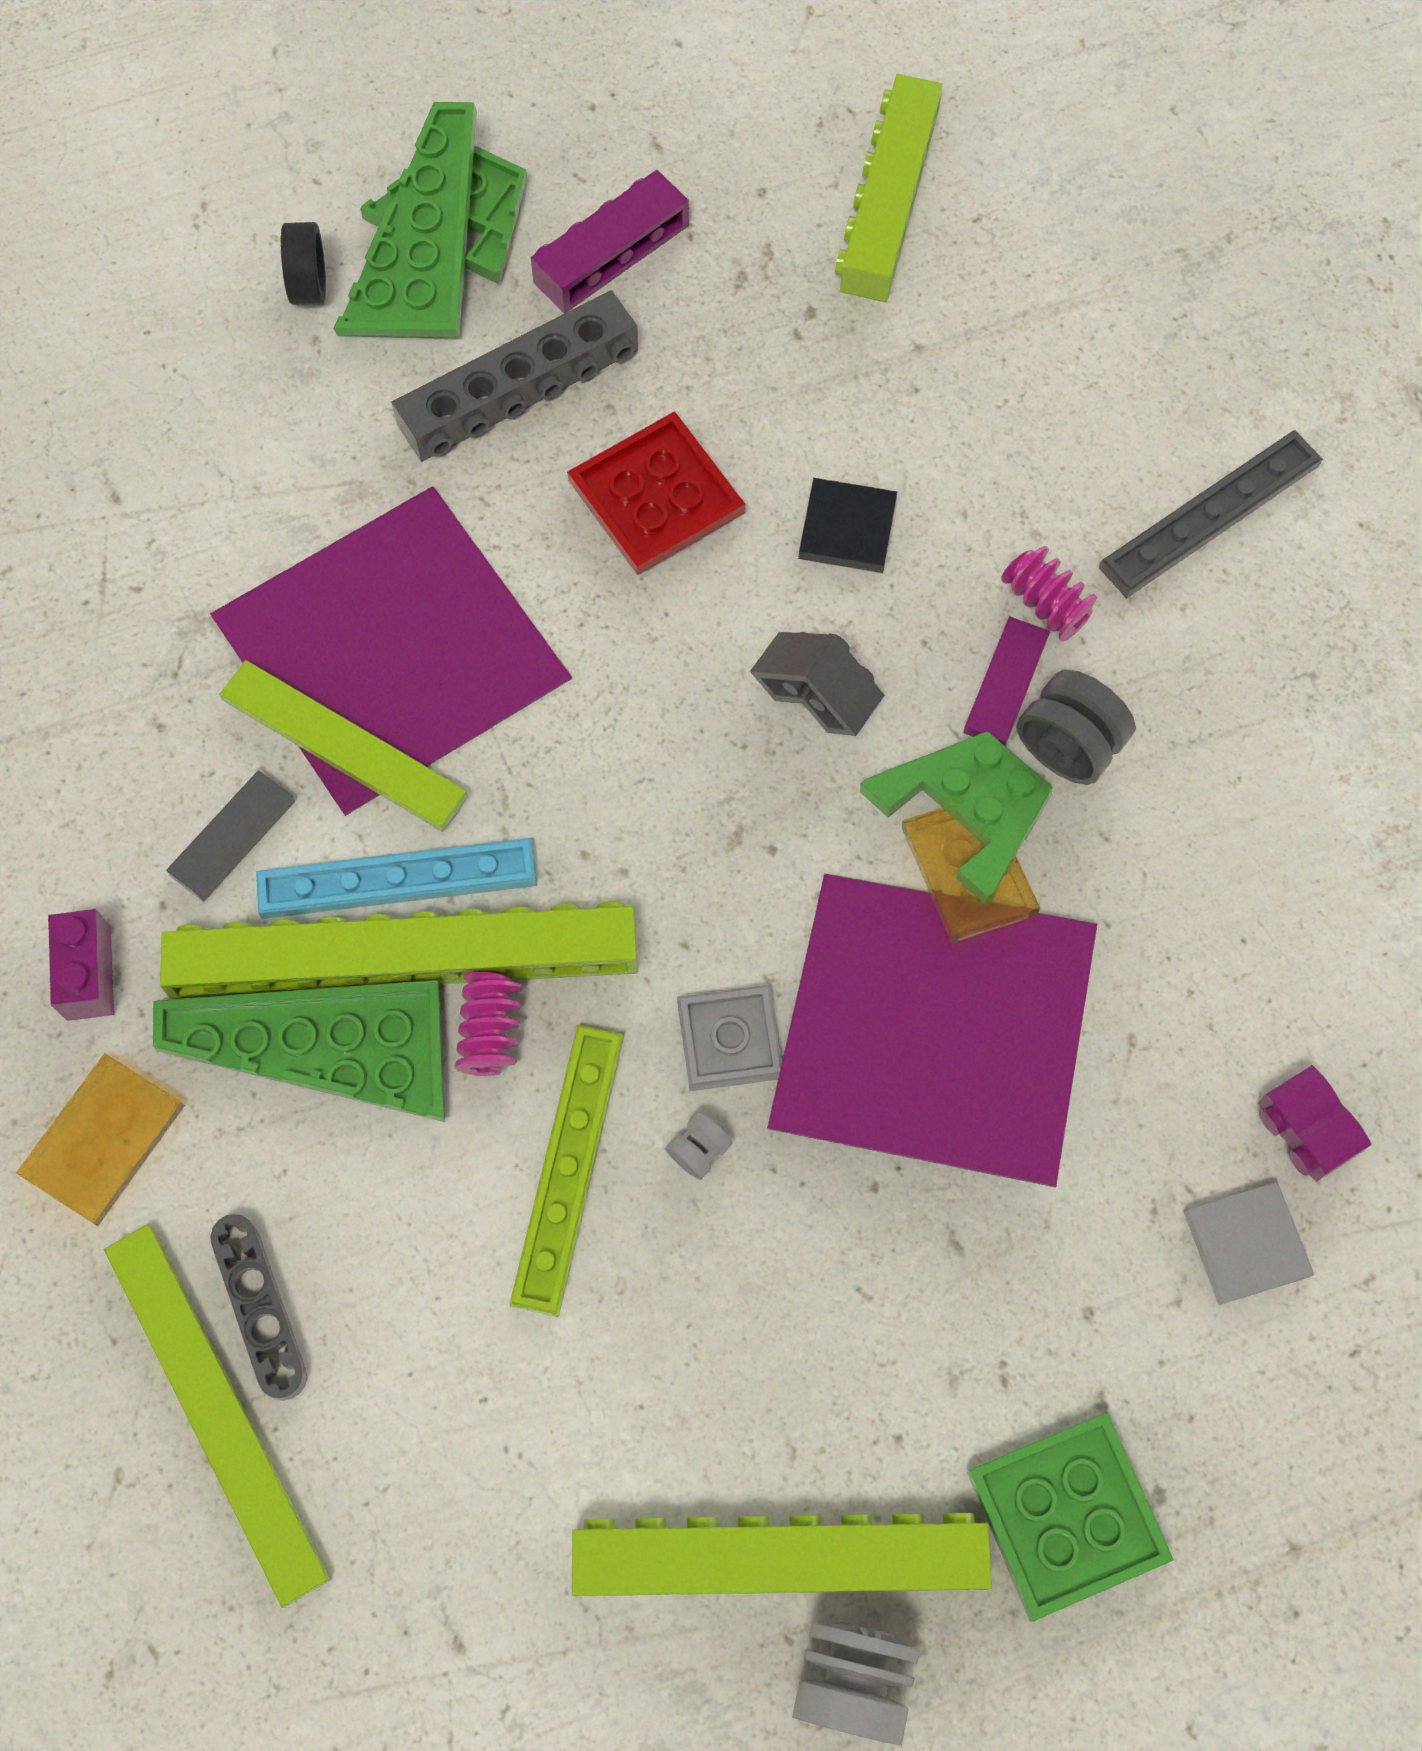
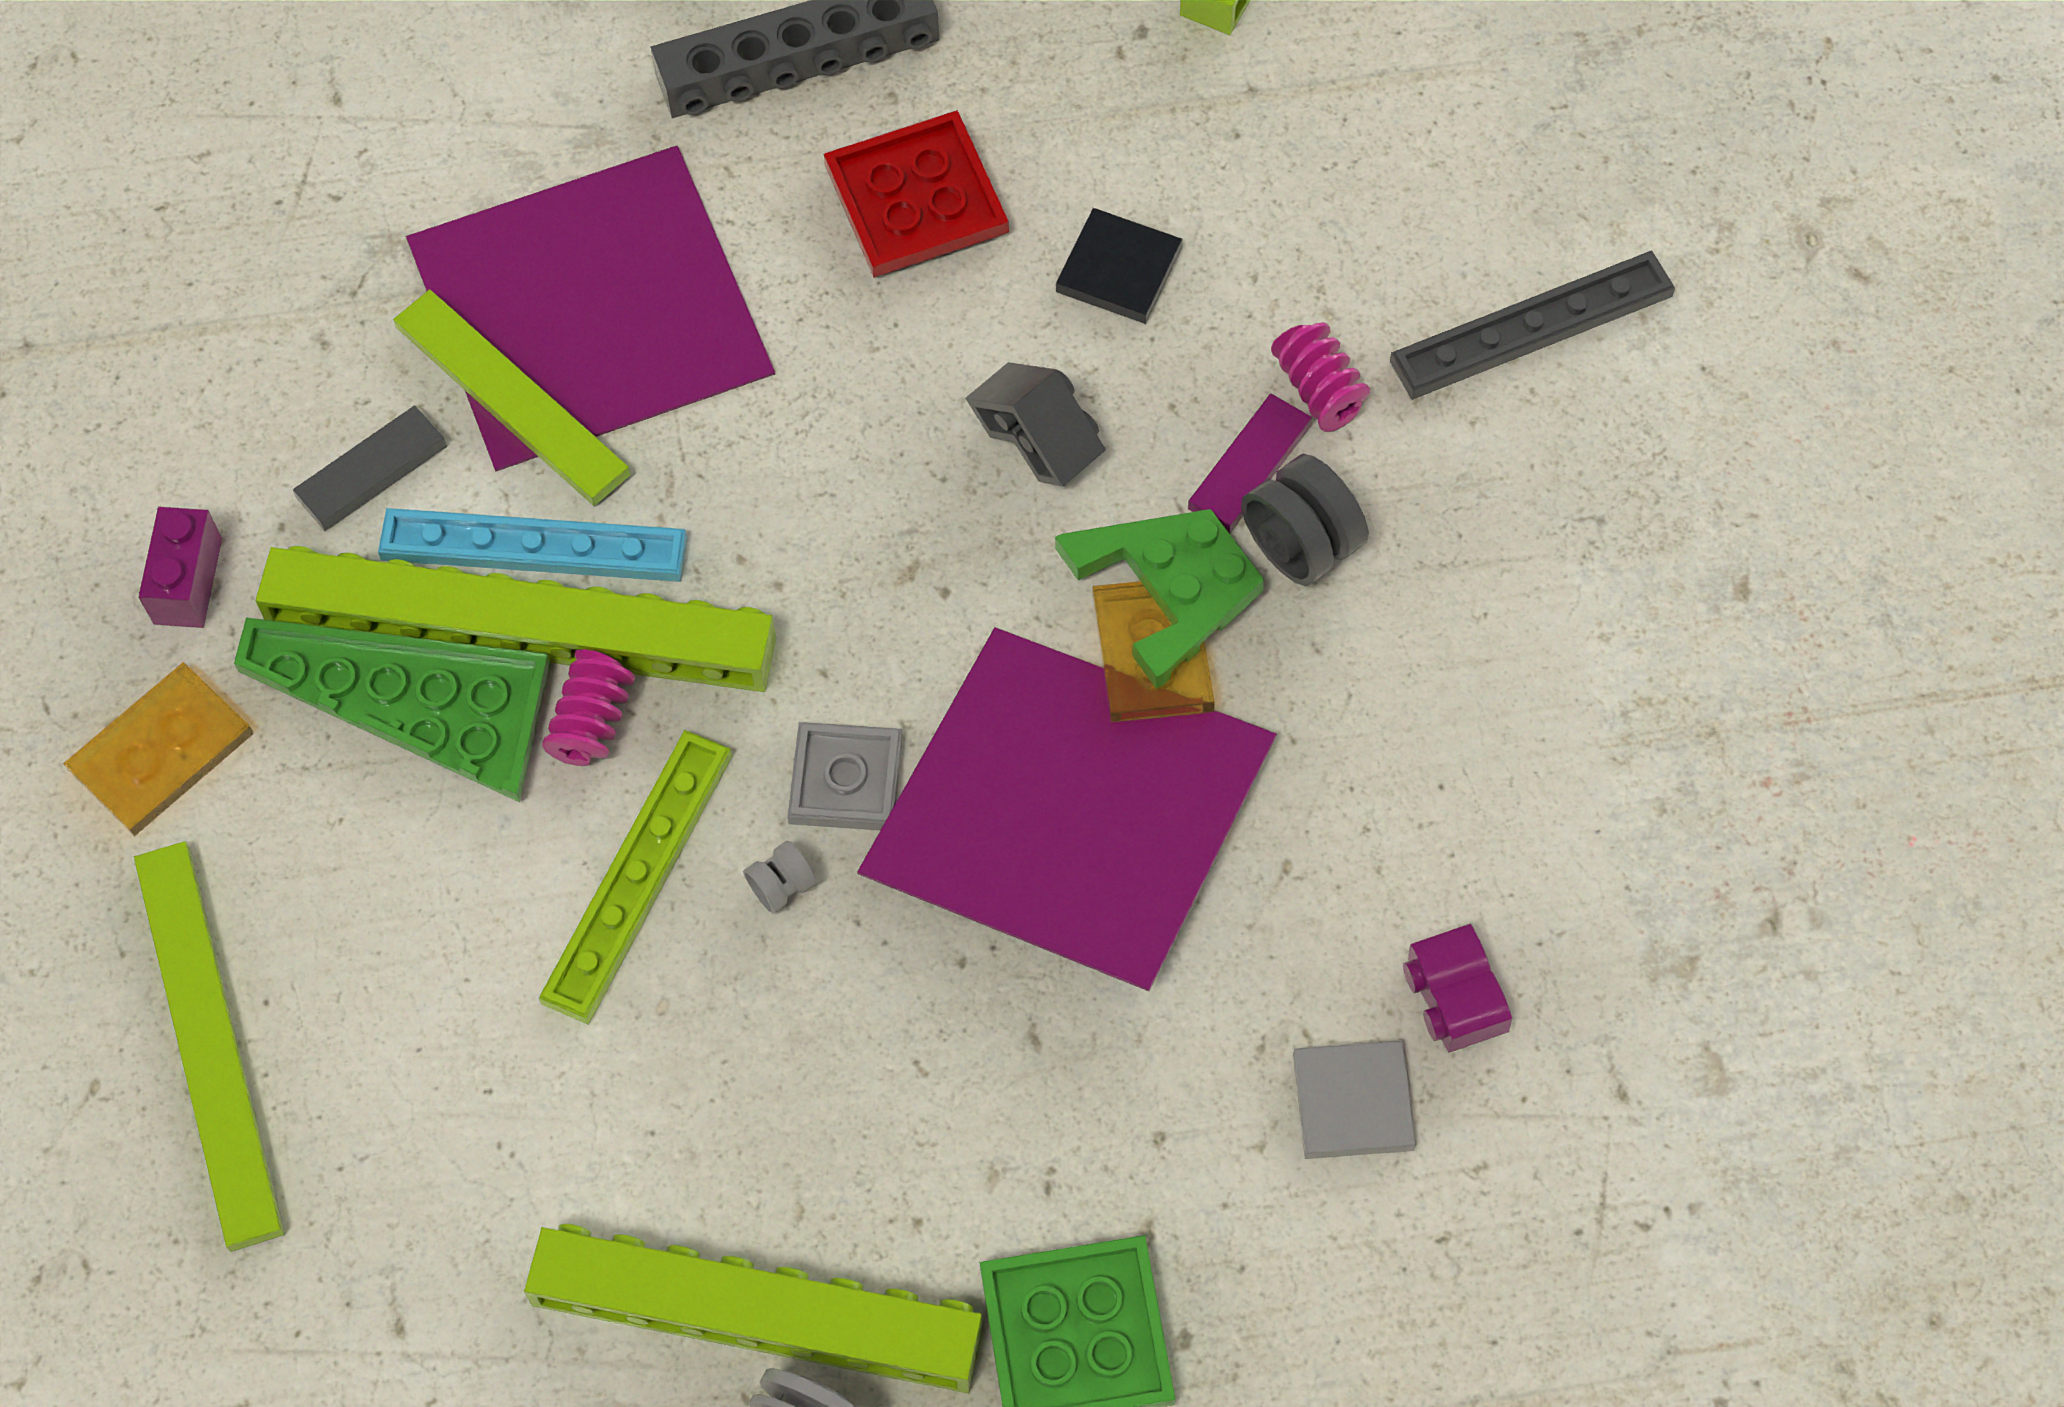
camera: 15 degrees right, 5 degrees down
(251, 1309) = (283, 946): dark grey beam -> none

